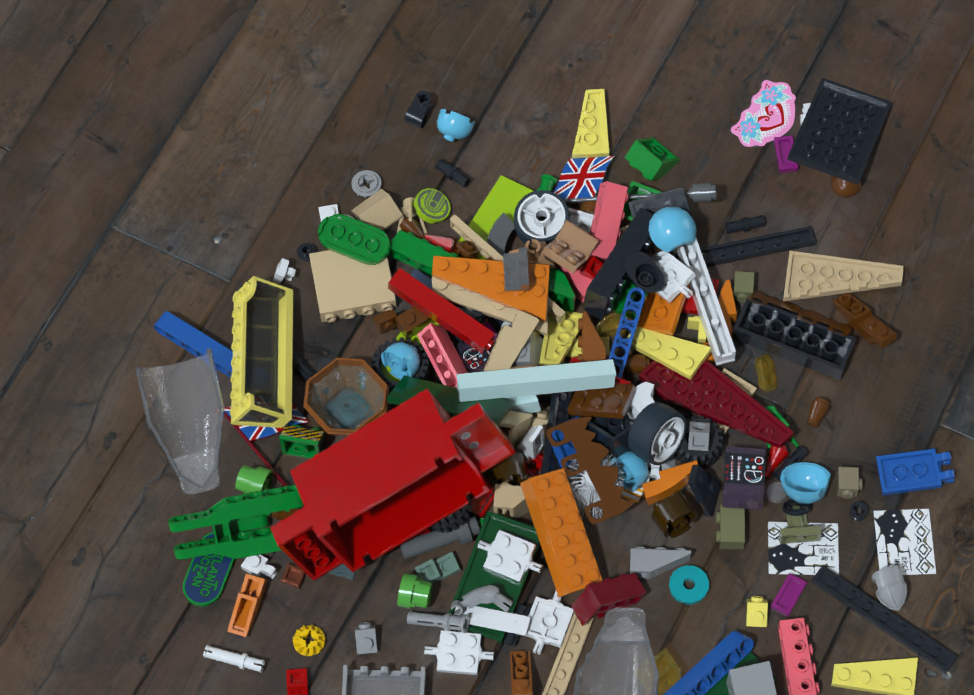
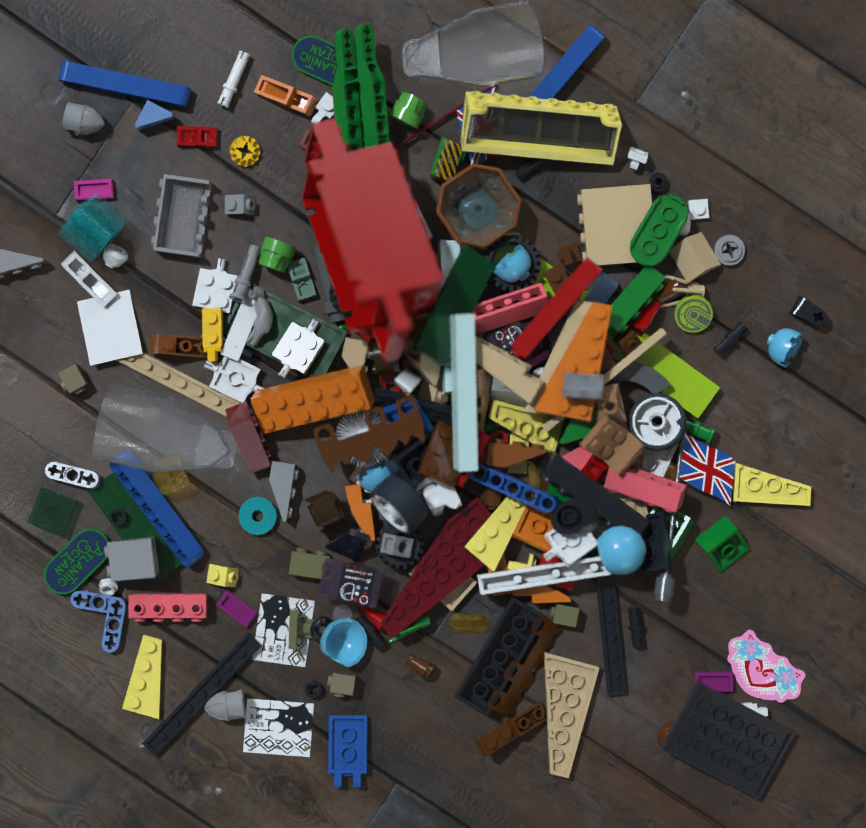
camera: 90 degrees right, 25 degrees up
(503, 646) = (212, 332): none -> yellow hinge

